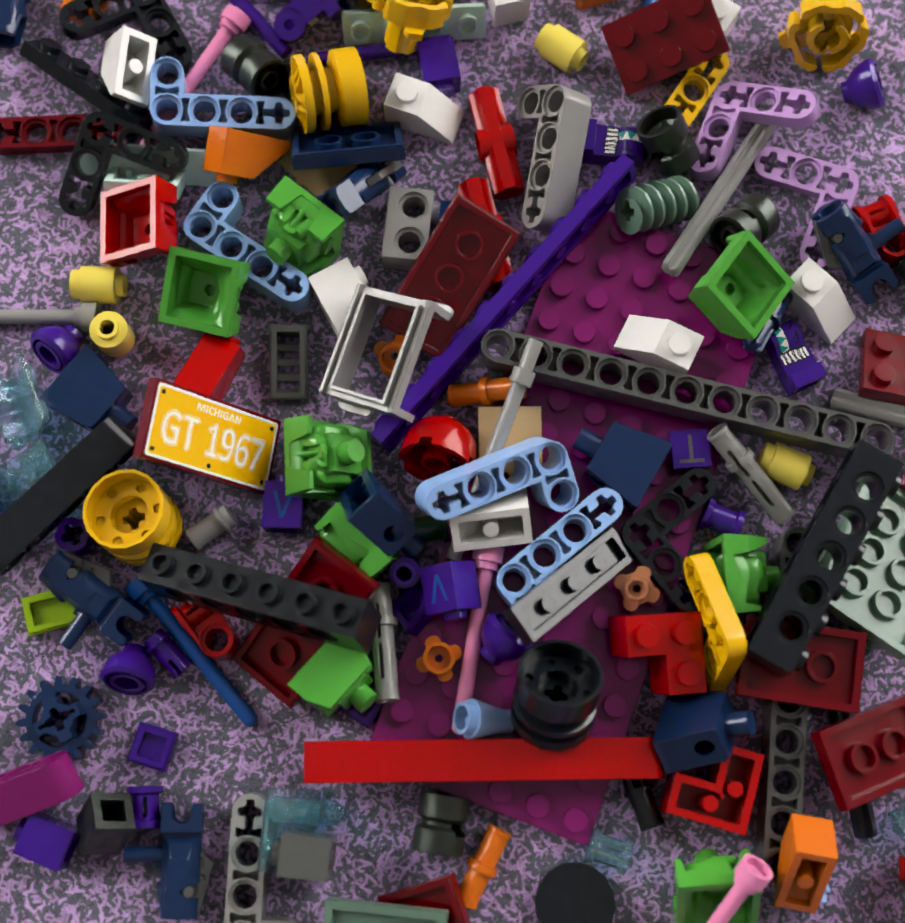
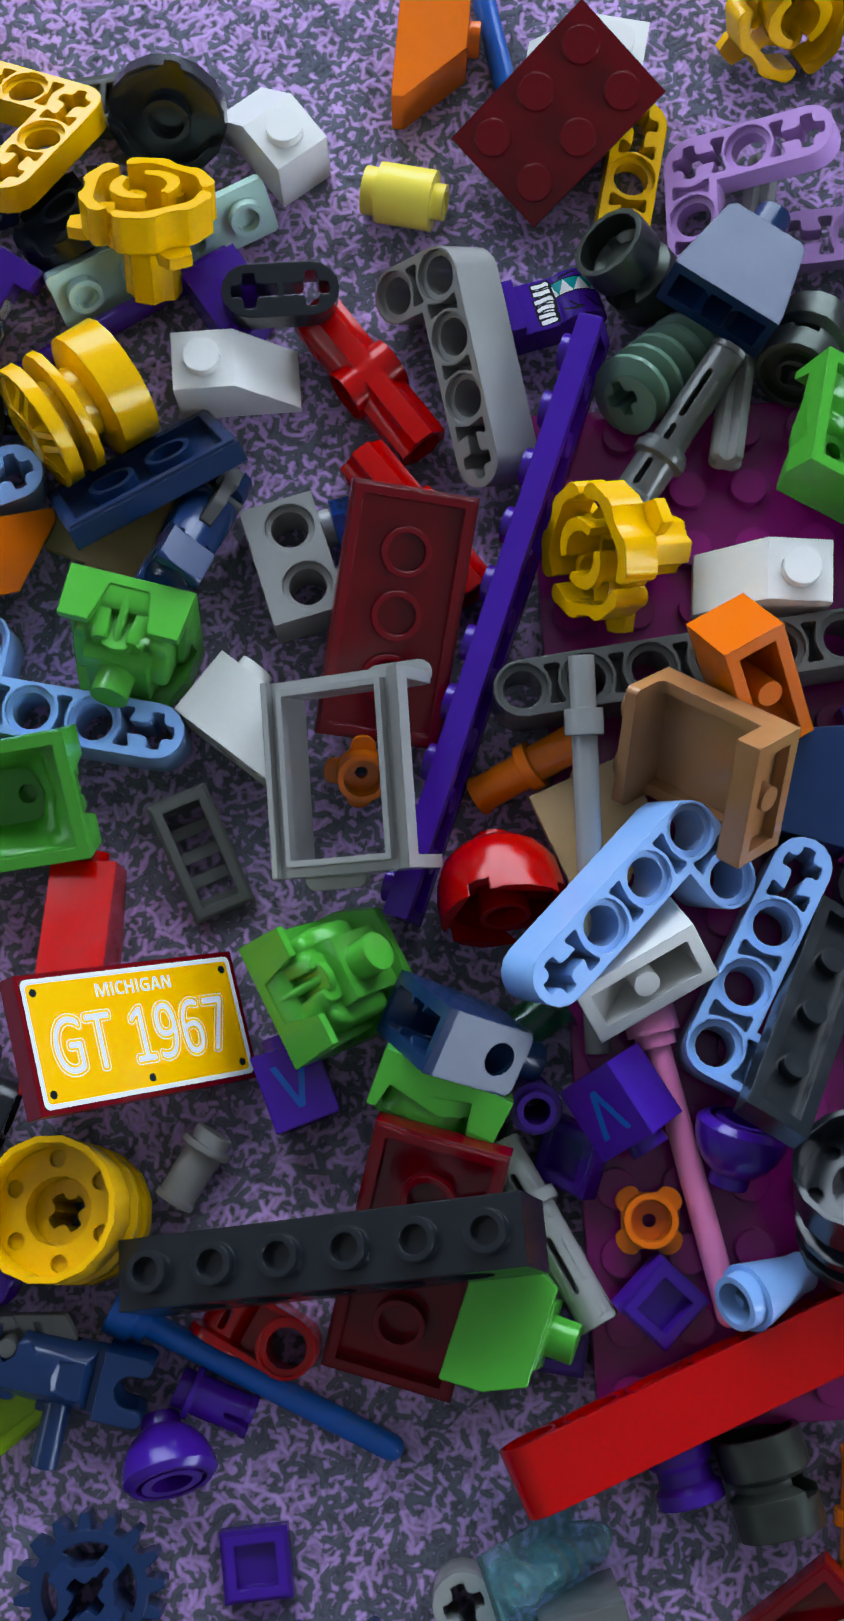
camera: 20 degrees left, 0 degrees up
(398, 800) = (688, 1481): none -> dark purple wheel
(425, 703) = (660, 1301): none -> dark purple tile
(468, 68) = (283, 281): none -> black beam
(580, 418) = (710, 749): none -> medium nougat panel
(581, 290) = (609, 550): none -> yellow piece
(623, 390) = (750, 658): none -> orange slope
(637, 249) = (661, 453): none -> dark grey pin
(721, 168) = (737, 275): none -> torso

